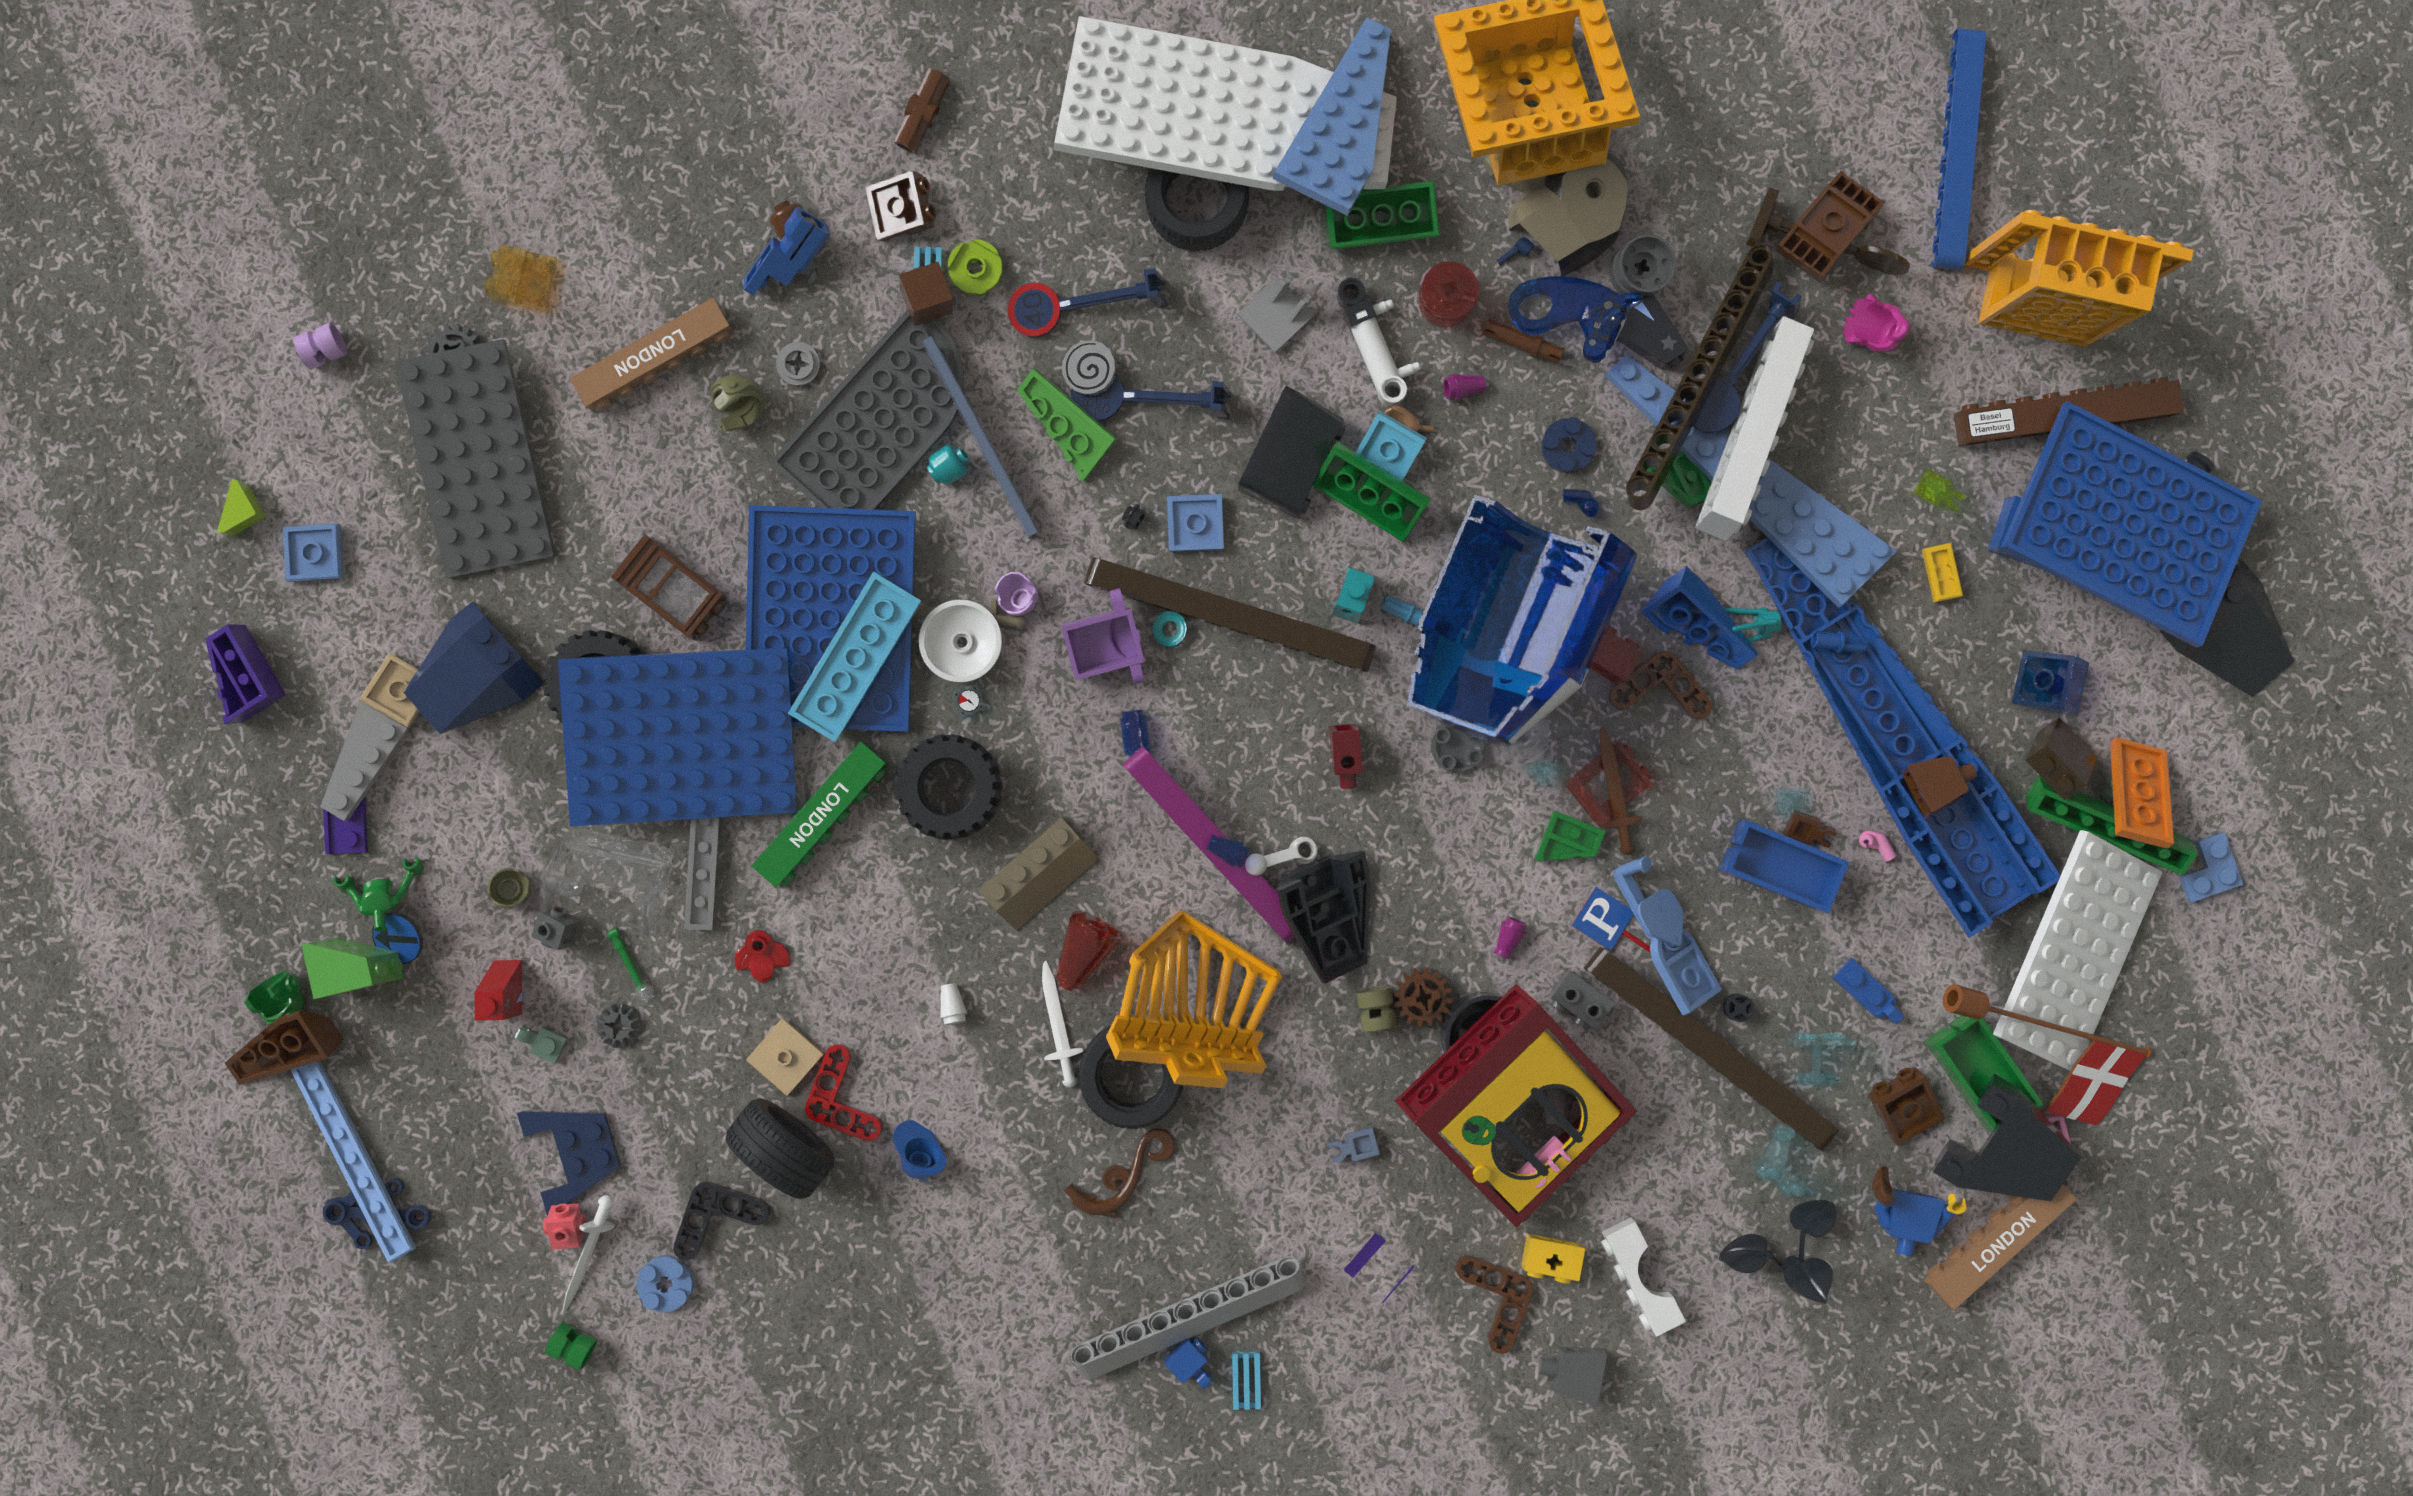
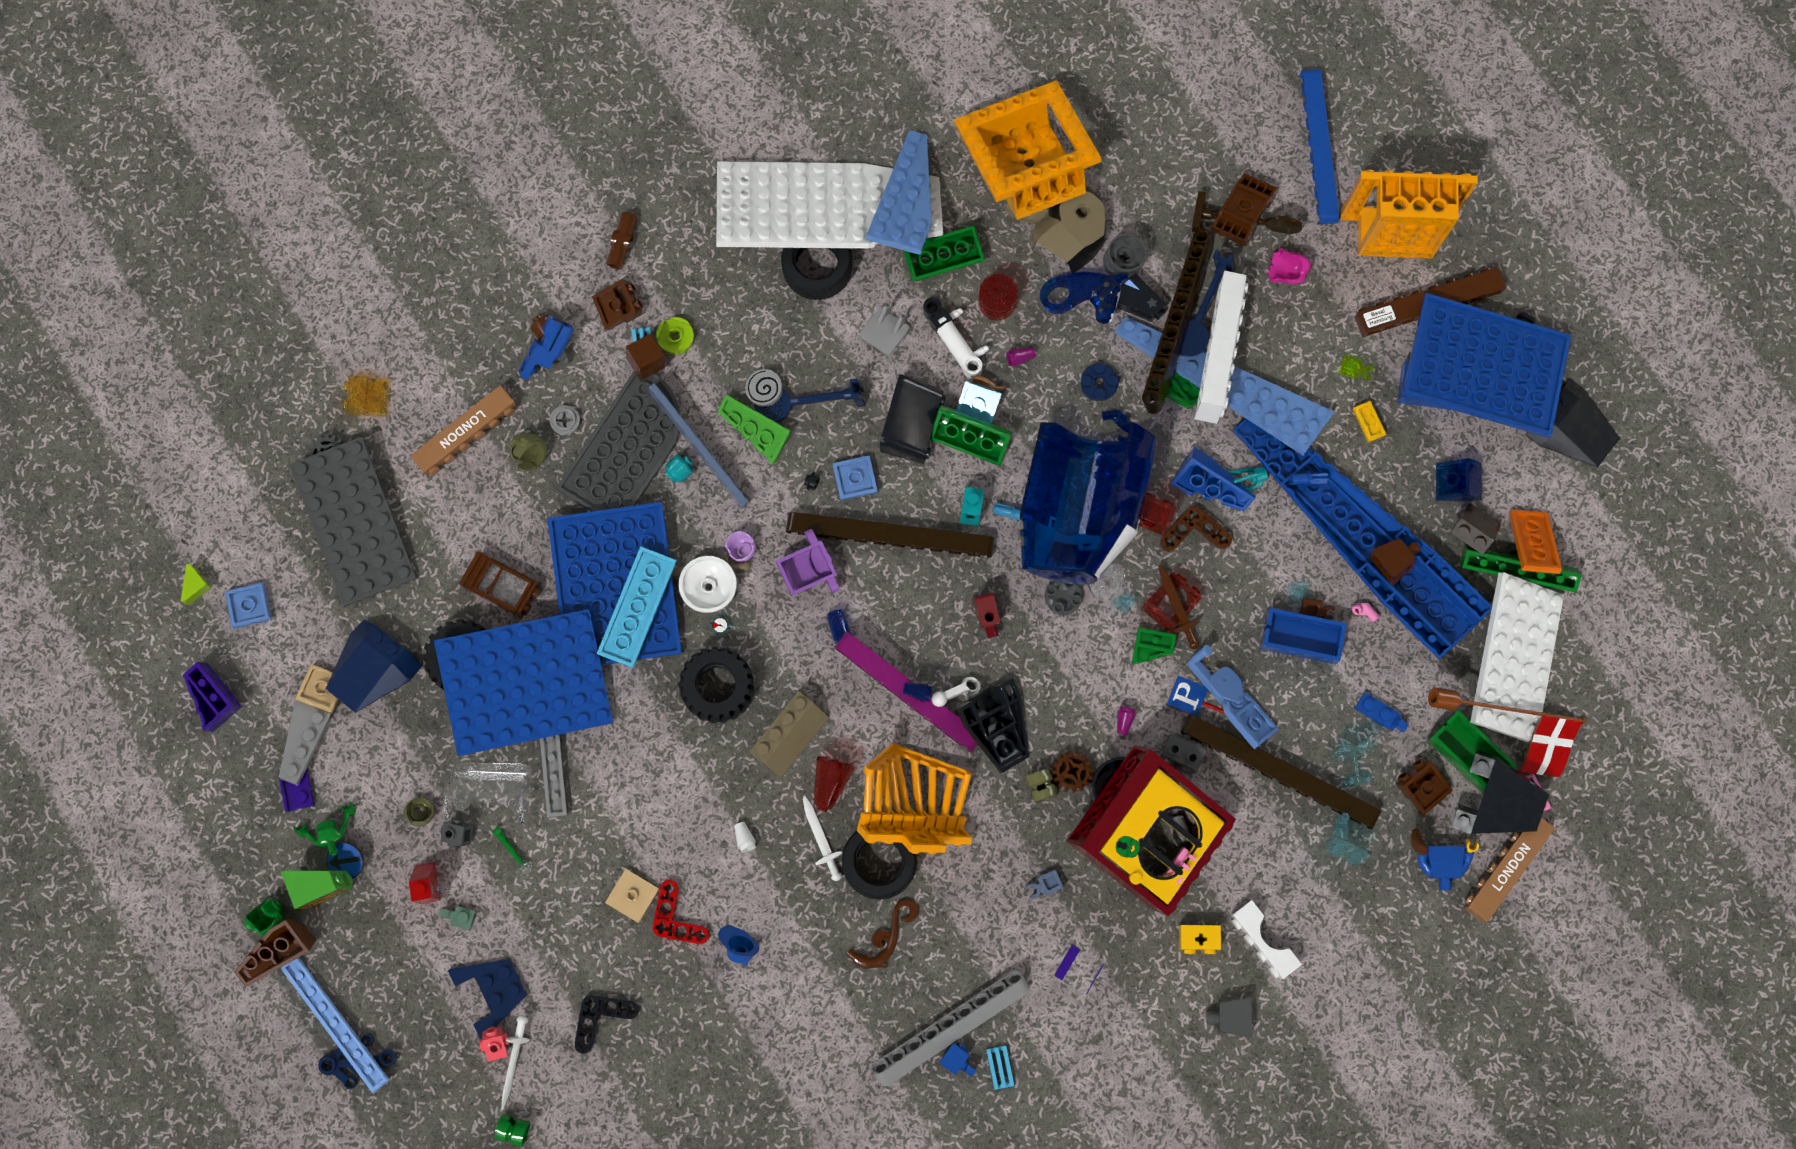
camera: 10 degrees left, 10 degrees down
(319, 346) = (235, 464): lavender wheel -> none
(629, 1018) = (517, 902): dark grey gear -> none
(652, 1273) = (582, 1080): medium blue plate -> none
(761, 960) = (604, 831): red plate -> none
(780, 1148) = (641, 954): black tyre -> none
(820, 815) = (629, 721): green brick -> none
(1037, 309) = (721, 355): dark blue piece -> none
(1158, 626) = (846, 545): teal piece -> none
(1508, 1299) = (1175, 974): reddish brown beam -> none
(1523, 245) = (1042, 257): dark blue hand -> none
(1523, 341) = (1054, 319): reddish brown pin -> none
(1742, 1011) = (1295, 737): black wheel -> none
(1805, 1277) = (1374, 913): black plant -> none
(2219, 870) = (1602, 587): medium blue plate -> none

